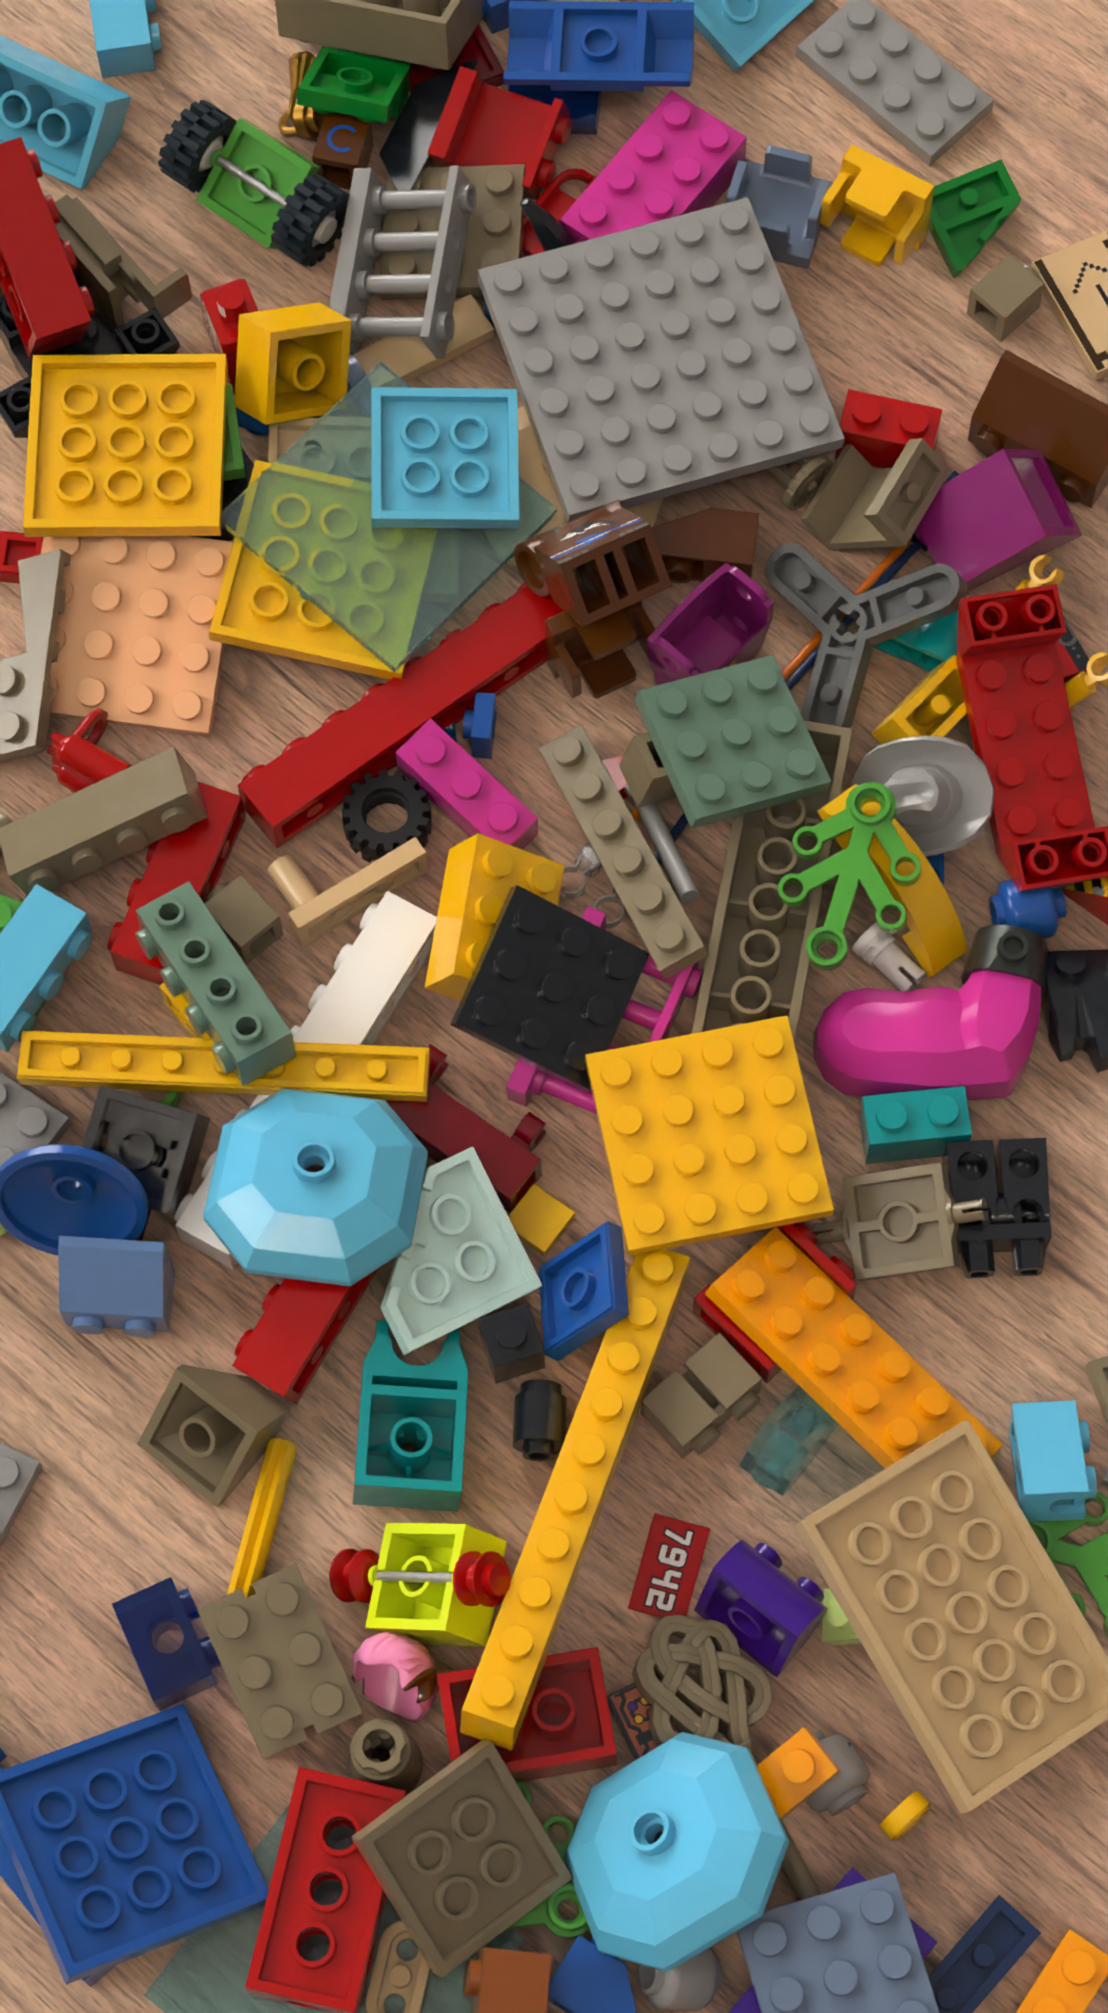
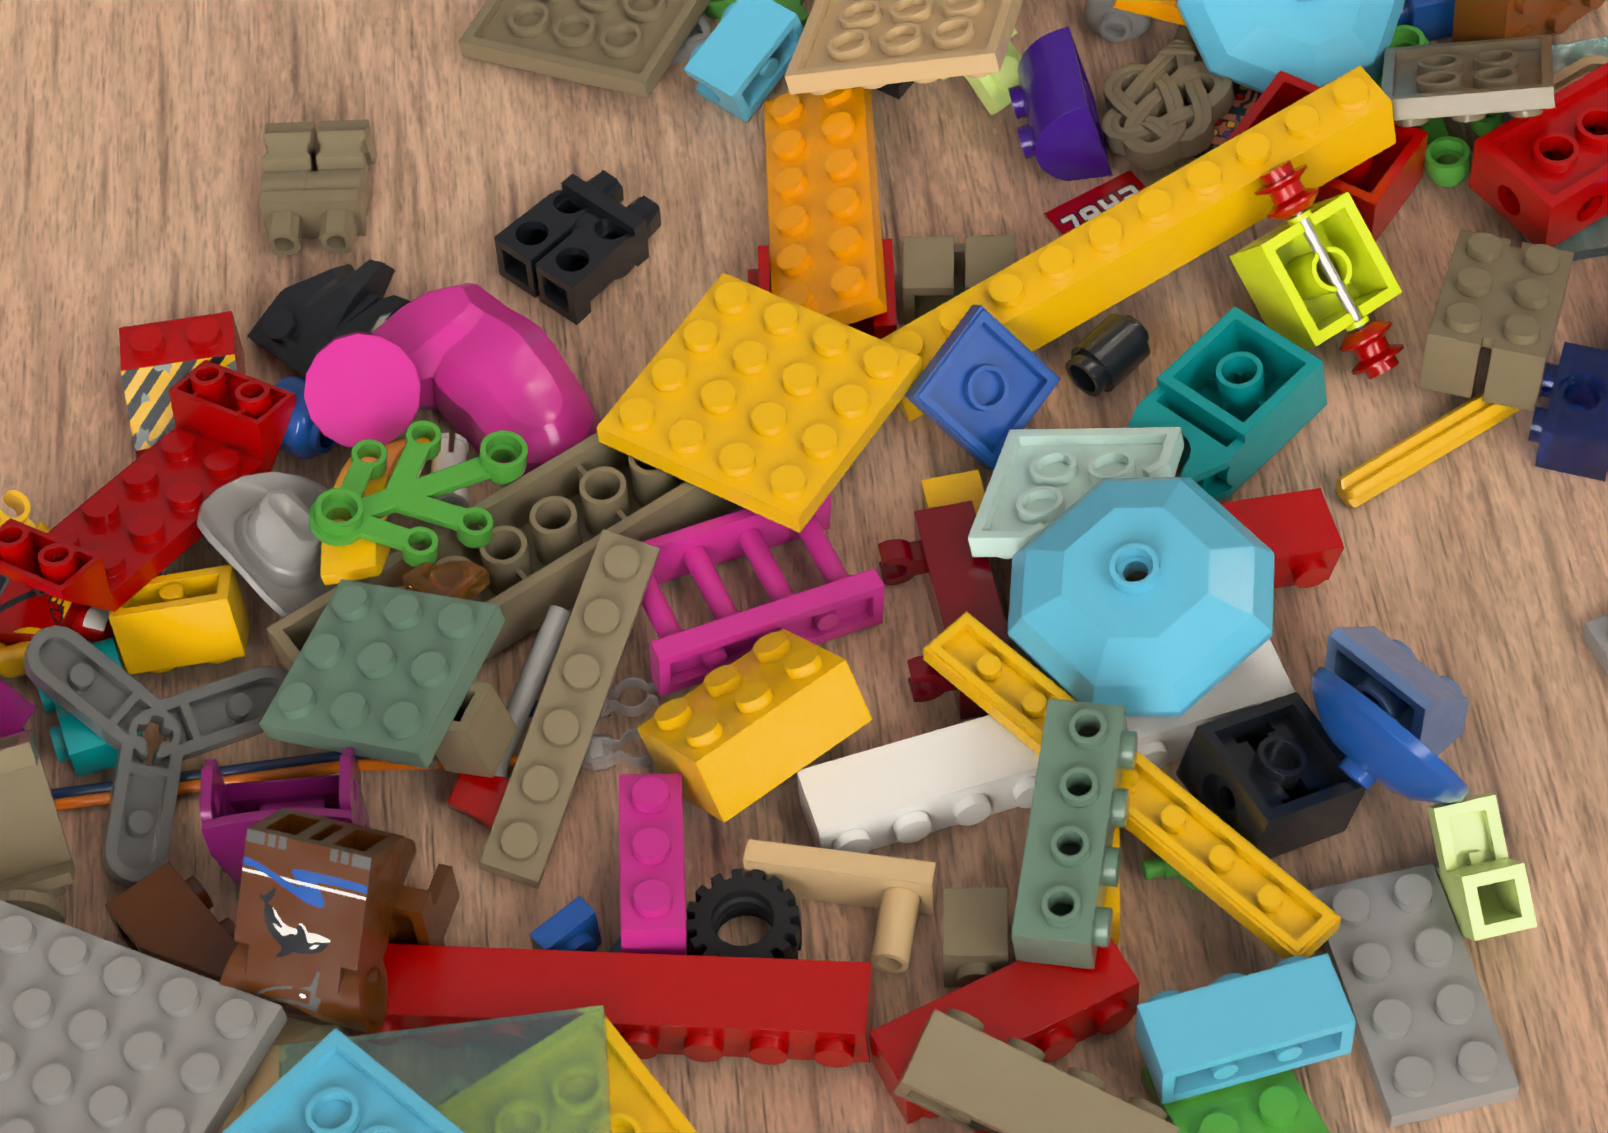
camera: 135 degrees left, 15 degrees down
(212, 1428) = (1400, 523): dark tan slope -> none
(396, 1674) = (1405, 251): bright pink hair -> none
(399, 1771) = (1465, 200): dark tan plant -> none
(512, 1343) = (1078, 401): black brick -> none
(549, 987) = (769, 604): black plate -> none
(768, 839) = (449, 580): none -> clear orange tile
(788, 1442) = (927, 197): clear light blue slope -> none
(900, 1221) = (661, 262): dark tan plate -> none
(913, 1123) = (589, 334): teal brick -> none
(980, 928) = (362, 389): none -> dark pink tile

